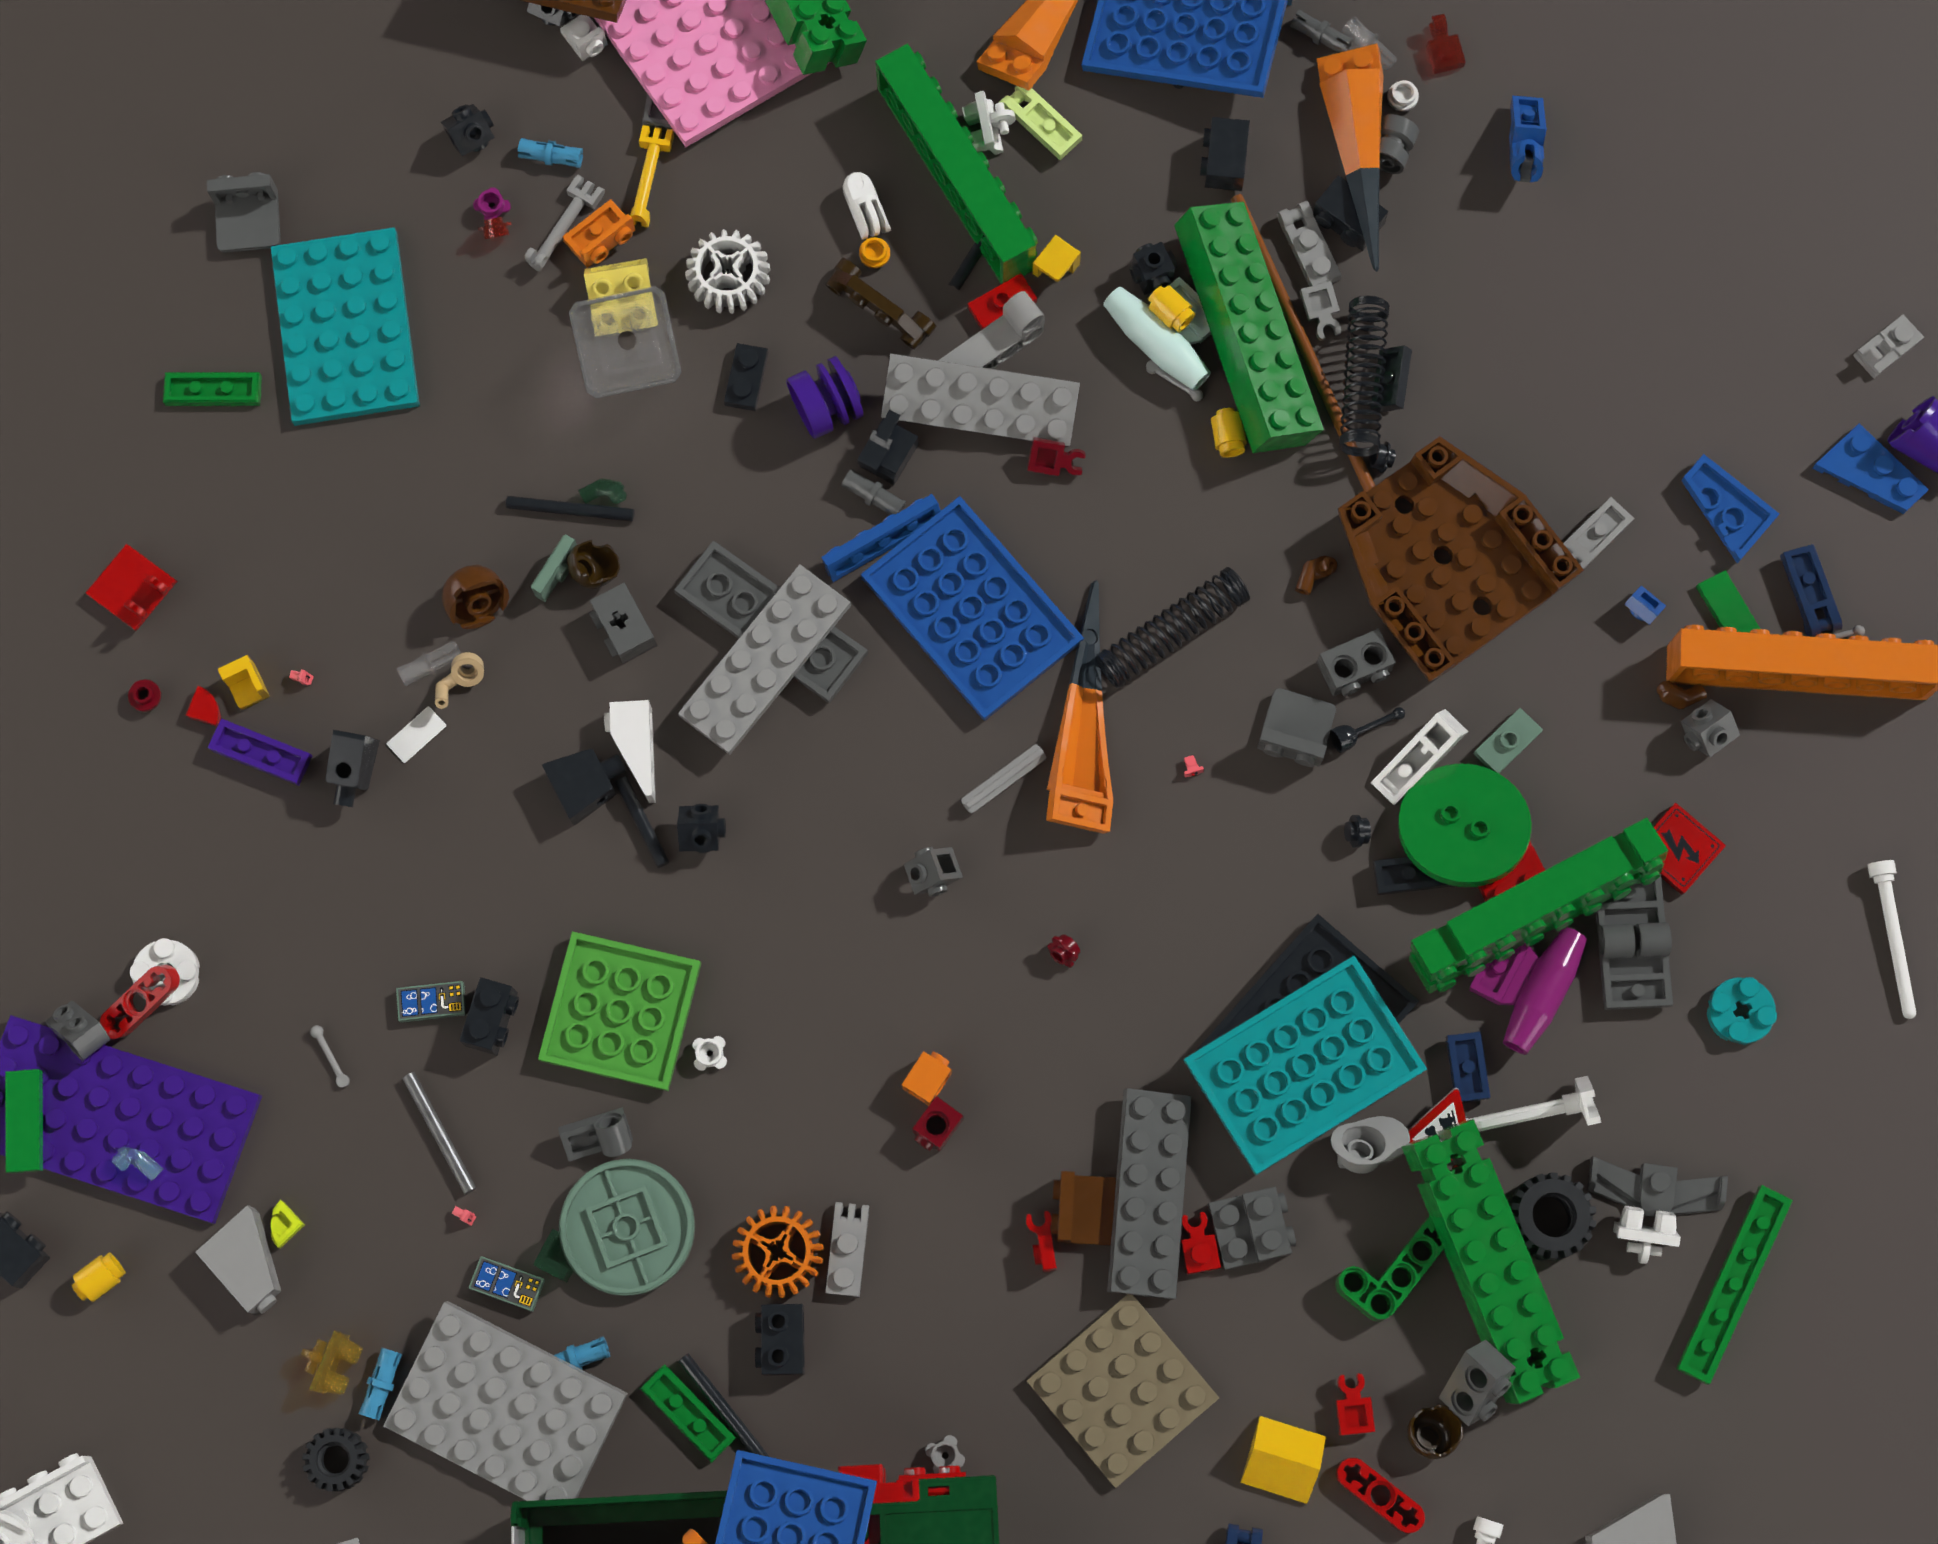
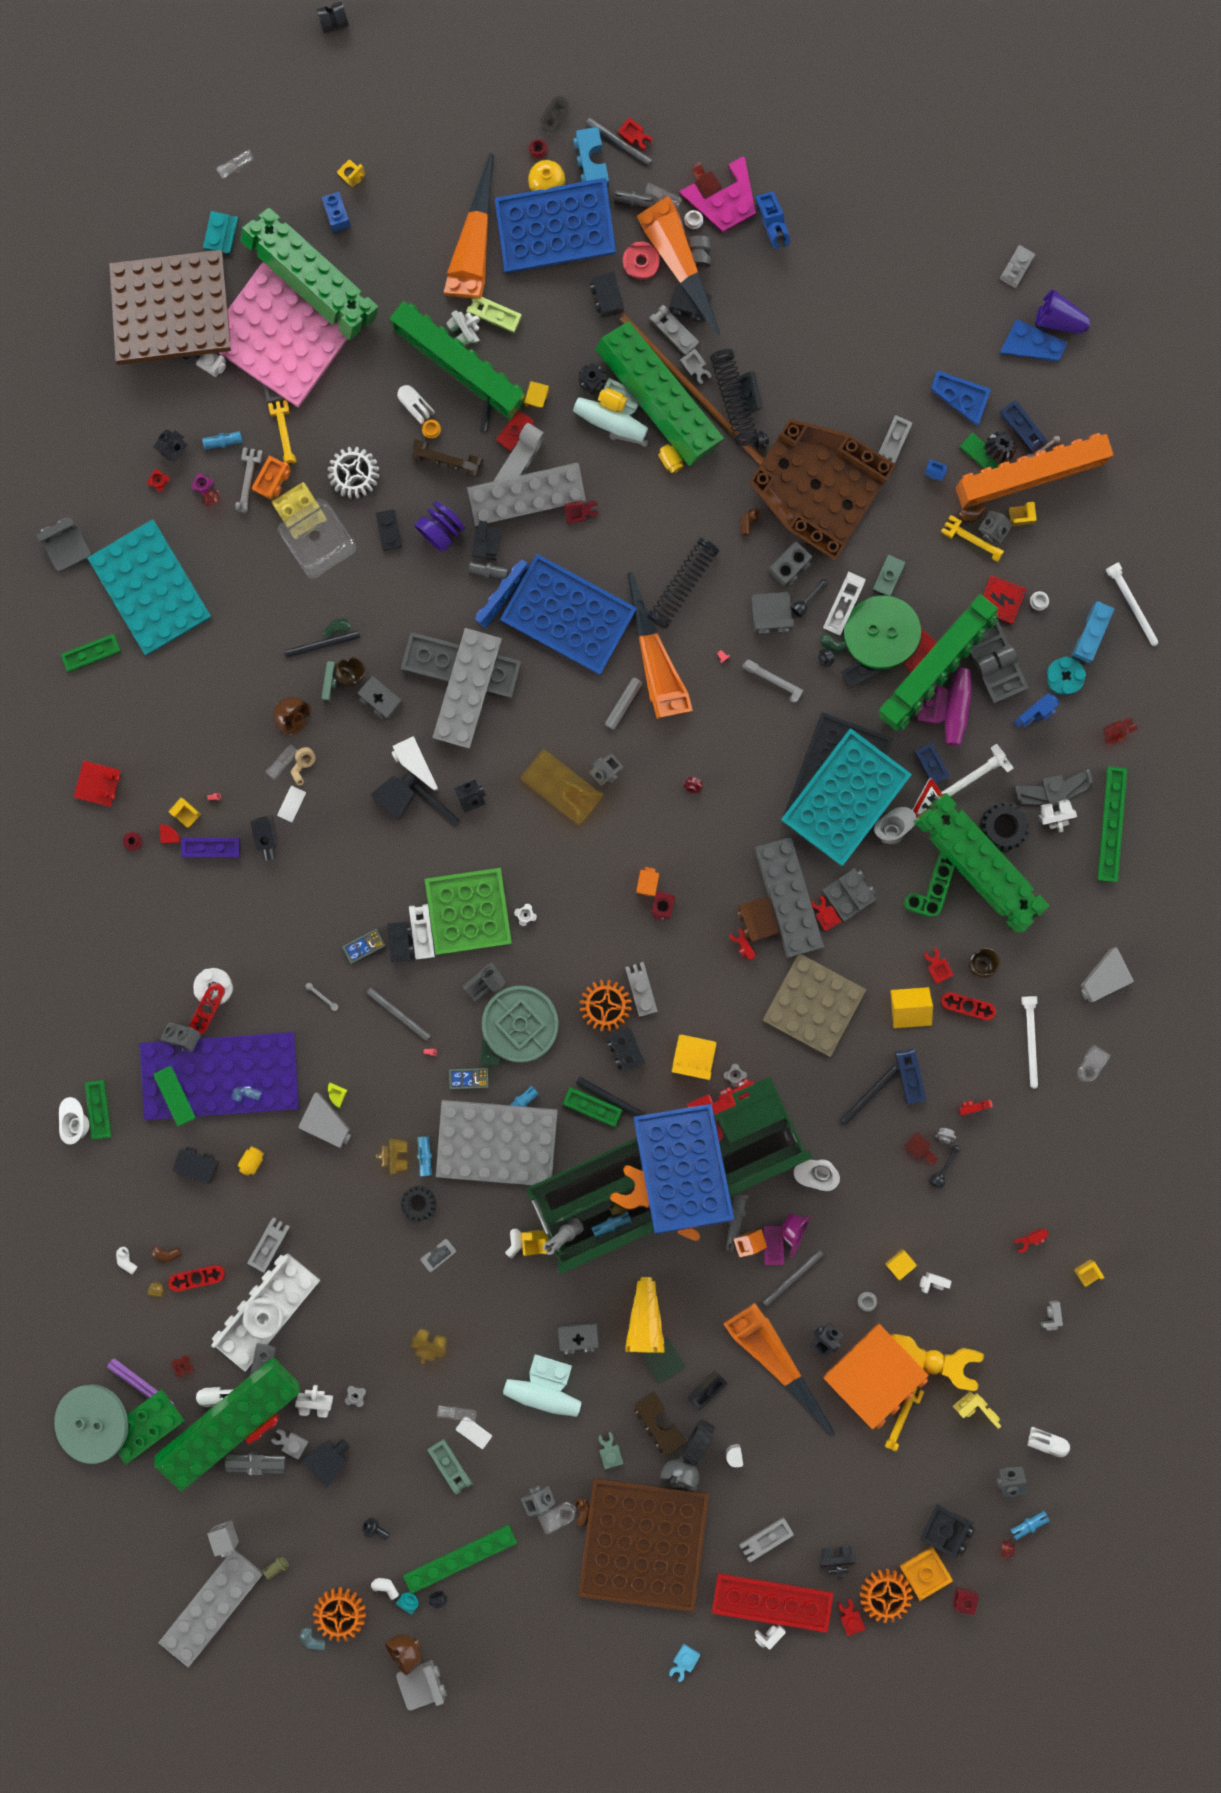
camera: 30 degrees left, 10 degrees up
(63, 1430) = (268, 1245): none -> light grey hinge
(424, 167) = (153, 480): none -> red plate
(531, 1016) = (422, 932): none -> white plate
(851, 873) = (561, 787): none -> clear yellow plate
(888, 1396) = (694, 1057): none -> yellow bracket
(1233, 801) = (752, 667): none -> light grey hinge
(1298, 143) = (637, 271): none -> coral tile
(1370, 809) = (828, 643): none -> clear green arm
(1466, 95) = (729, 205): none -> dark pink wing
(1478, 1383) = (998, 929): dark grey brick -> none
(1644, 710) = (955, 529): none -> yellow hinge
(1678, 1047) = (1040, 710): none -> blue plate
(1740, 873) = (1039, 601): none -> white plate
(1762, 607) = (1000, 447): none -> black gear
(1762, 728) = (1023, 514): none -> yellow panel
(1795, 1133) = (1116, 732): none -> clear red plate
(1812, 956) = (1093, 632): none -> dark azure arch

